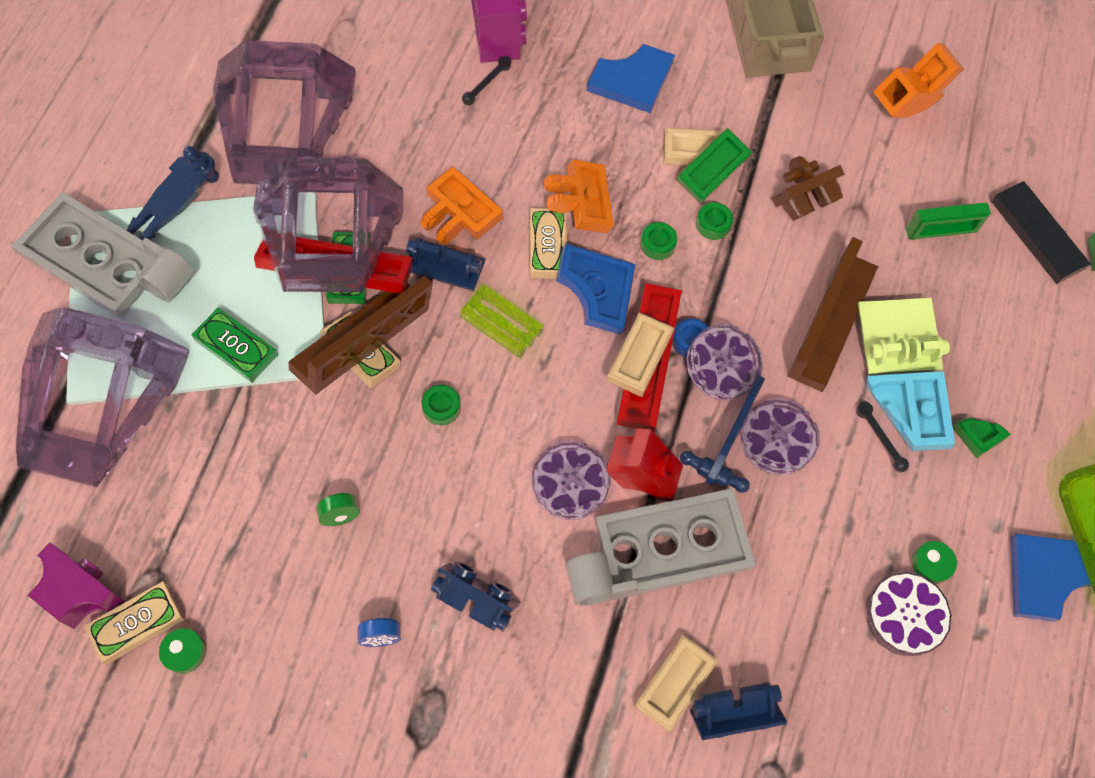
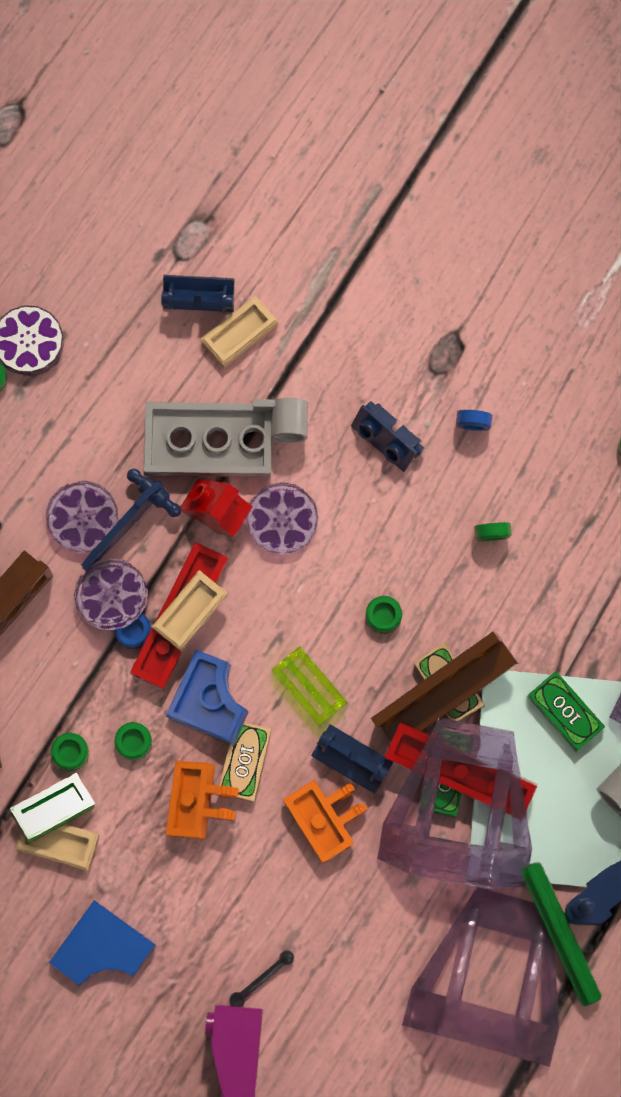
camera: 165 degrees left, 10 degrees up
(223, 157) = (561, 934): none -> green axle

